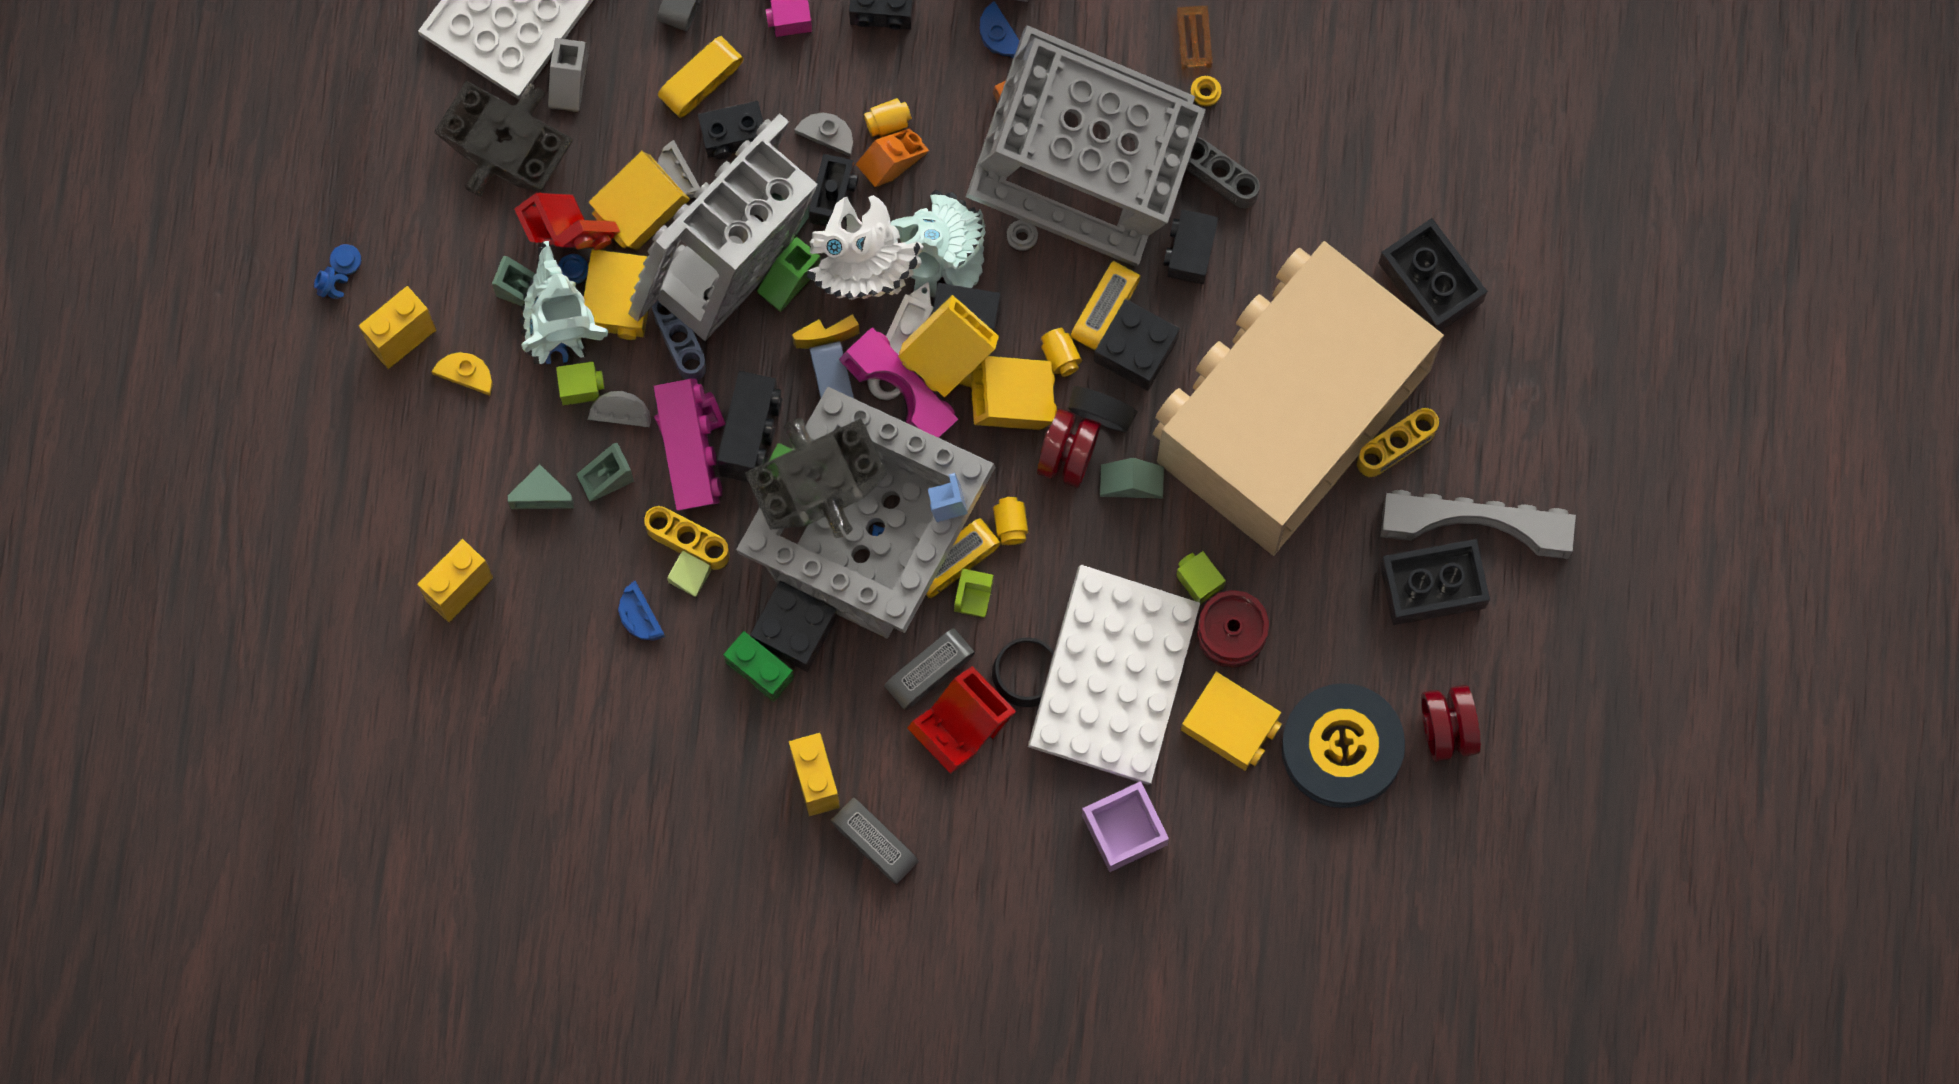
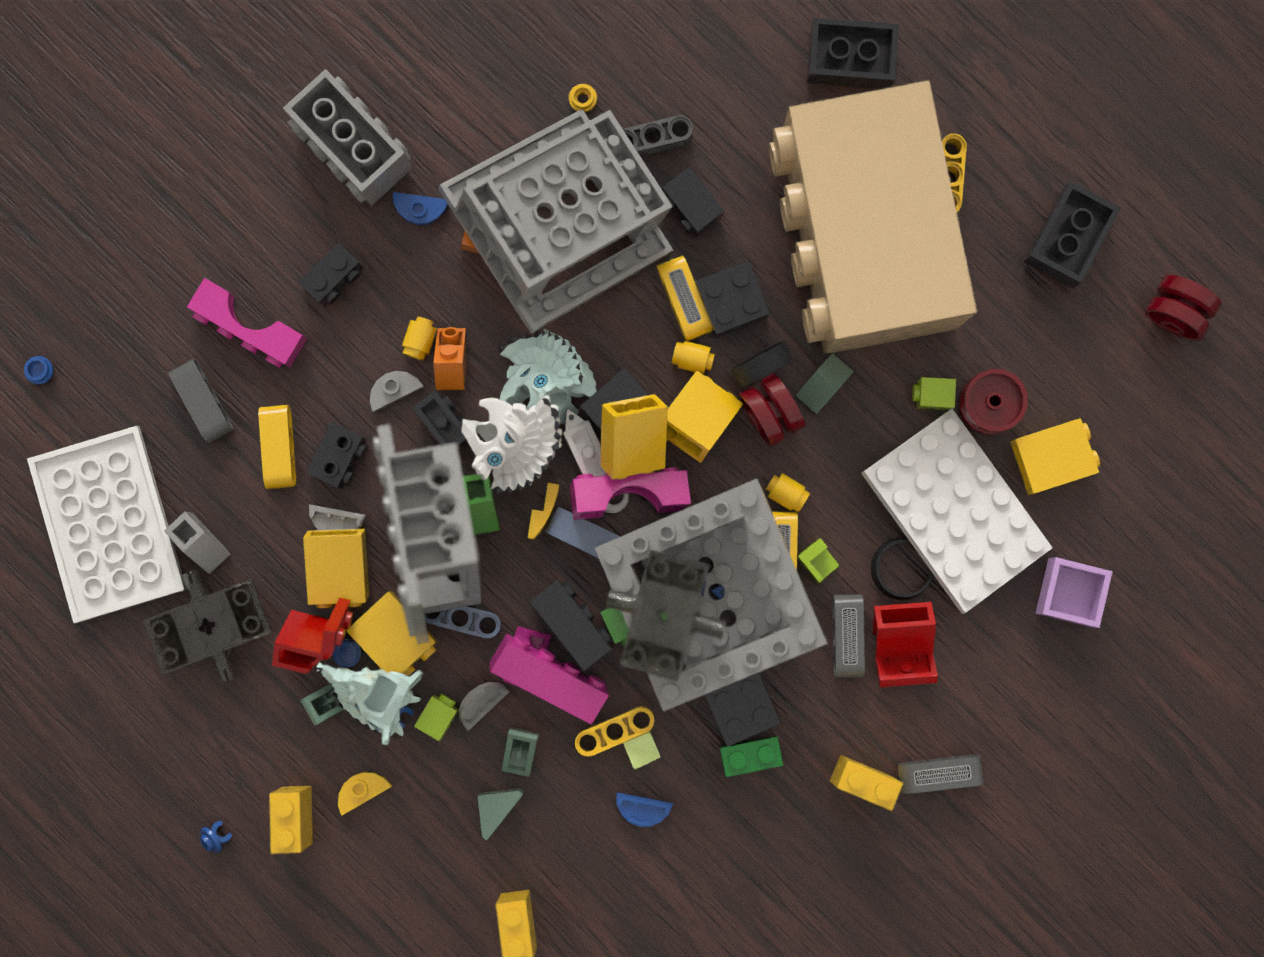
camera: 50 degrees left, 10 degrees up
(345, 259) = (205, 811): blue plate -> none
(947, 500) = (760, 535): medium blue panel -> none
(1022, 226) = (589, 321): light grey plate -> none
(1196, 62) = (555, 87): clear orange tile -> none
(1380, 740) = (1149, 364): black wheel -> none
(1542, 531) = (1096, 129): light grey arch -> none

